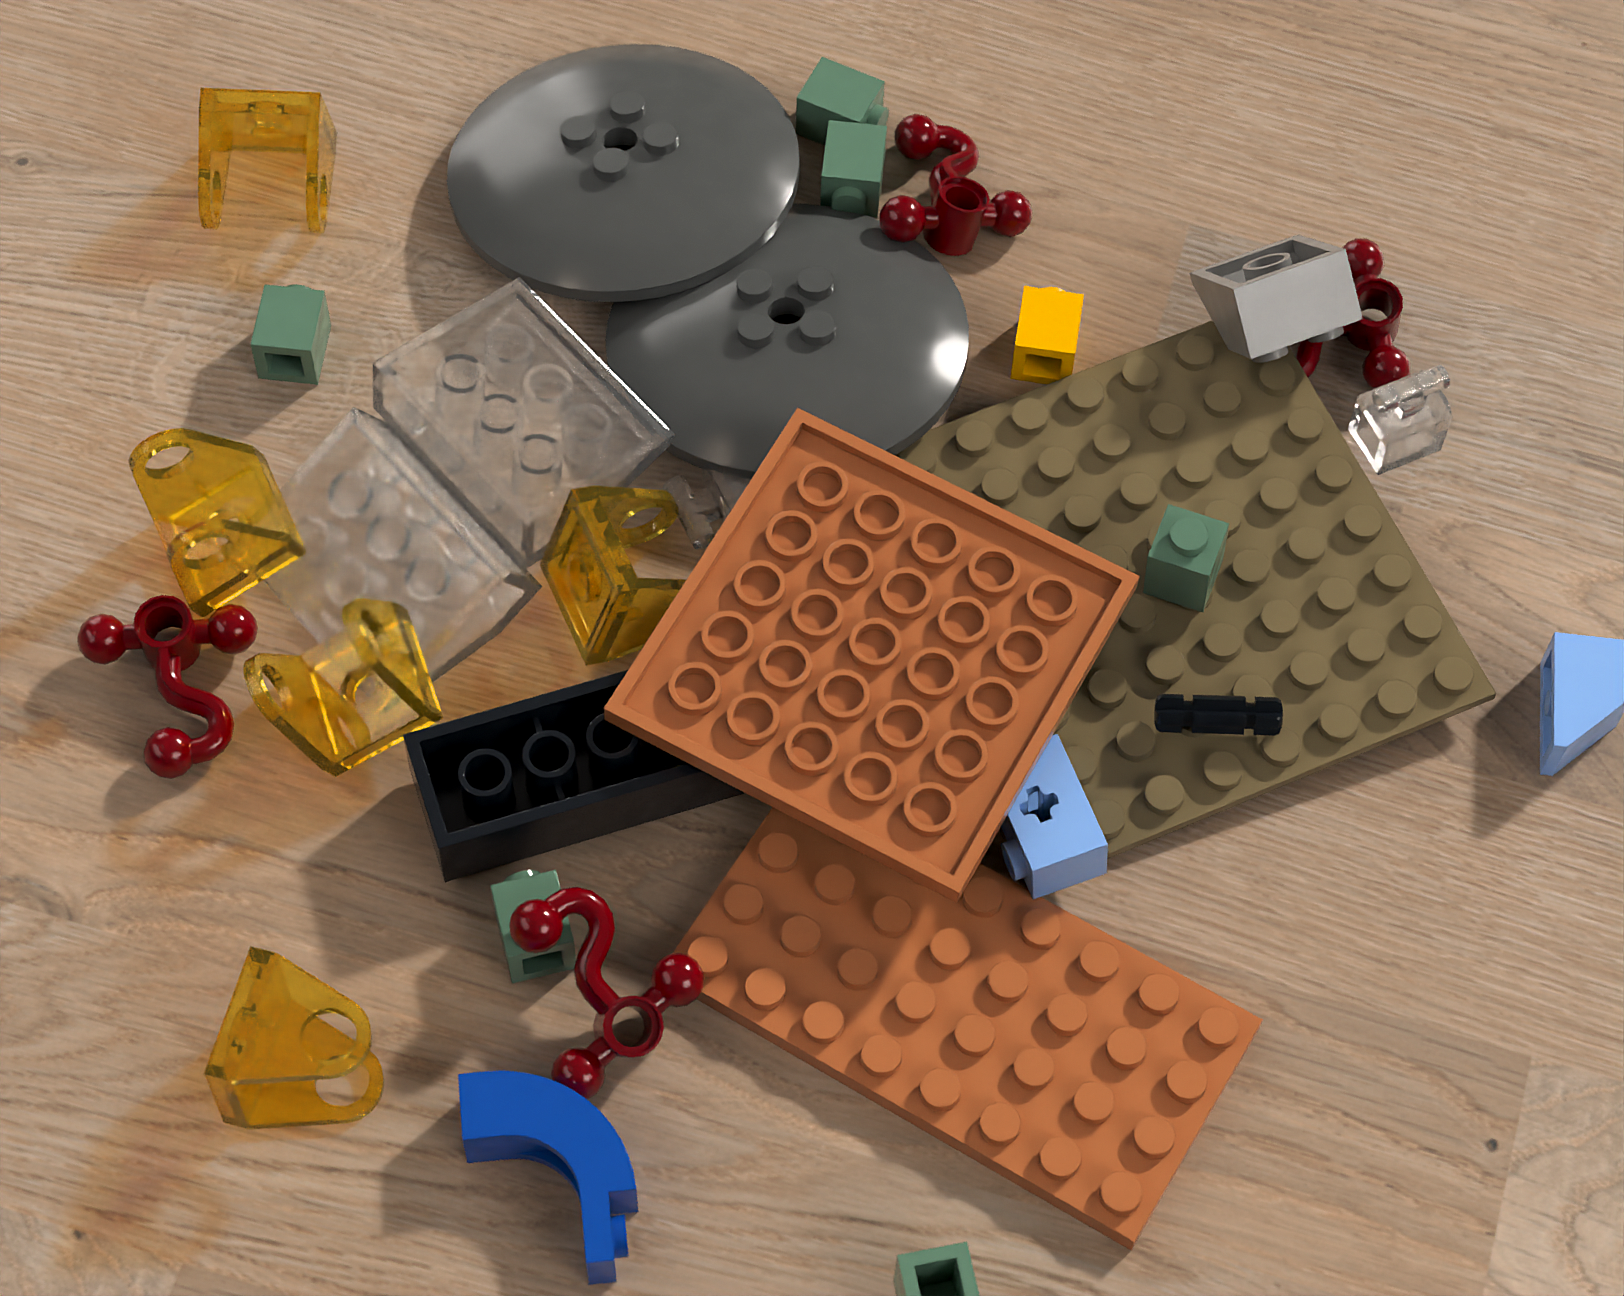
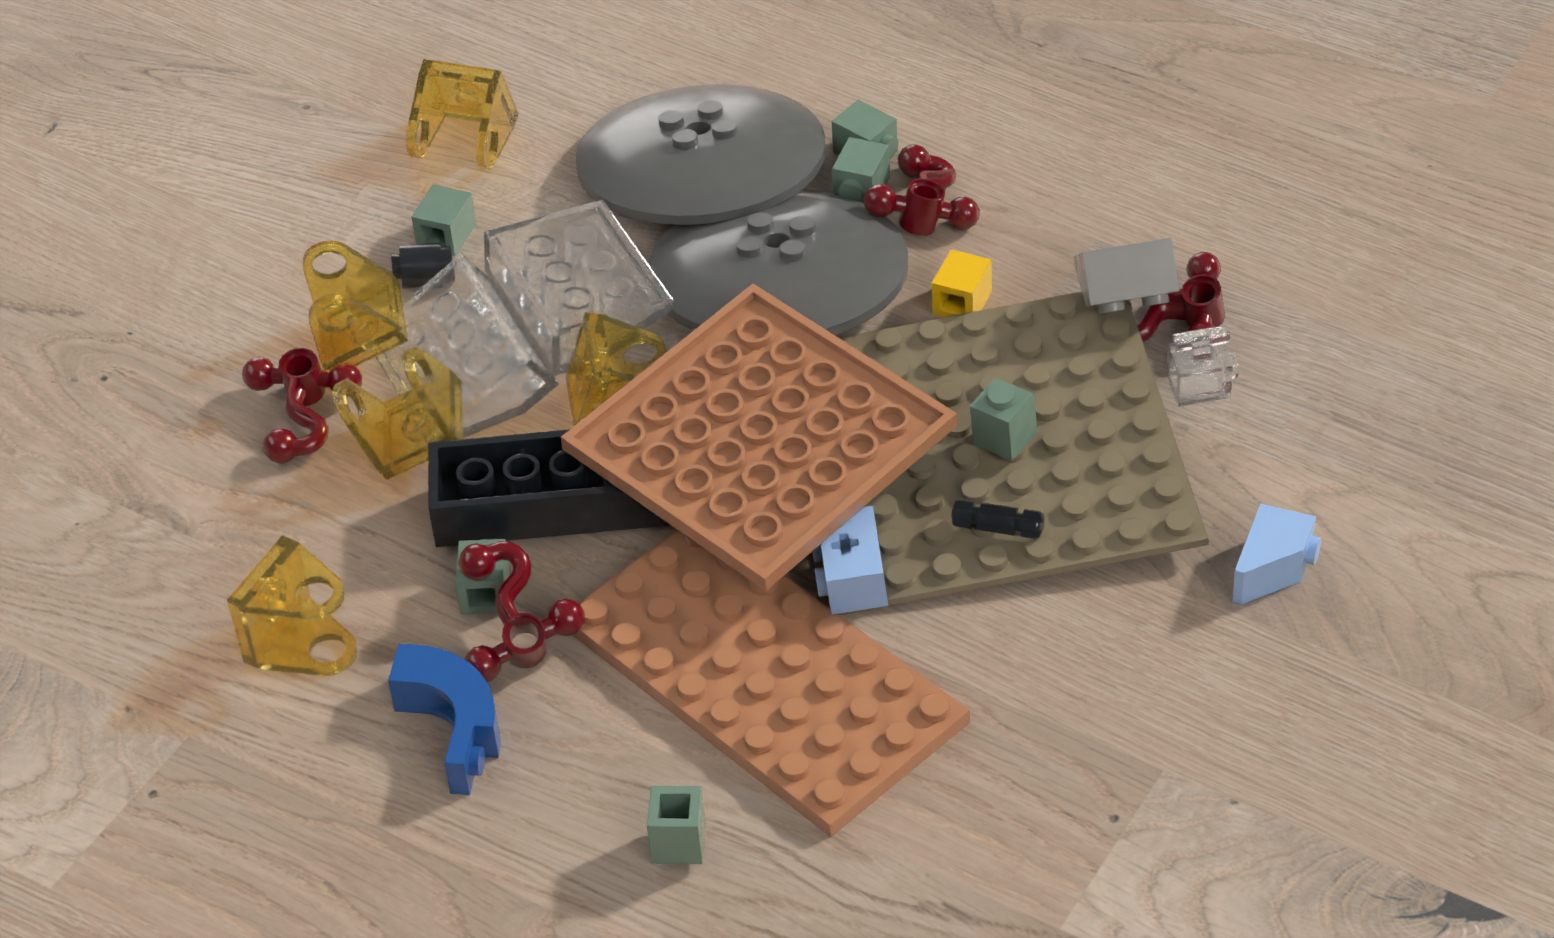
camera: 20 degrees right, 15 degrees down
(283, 413) = (419, 263): none -> black brick

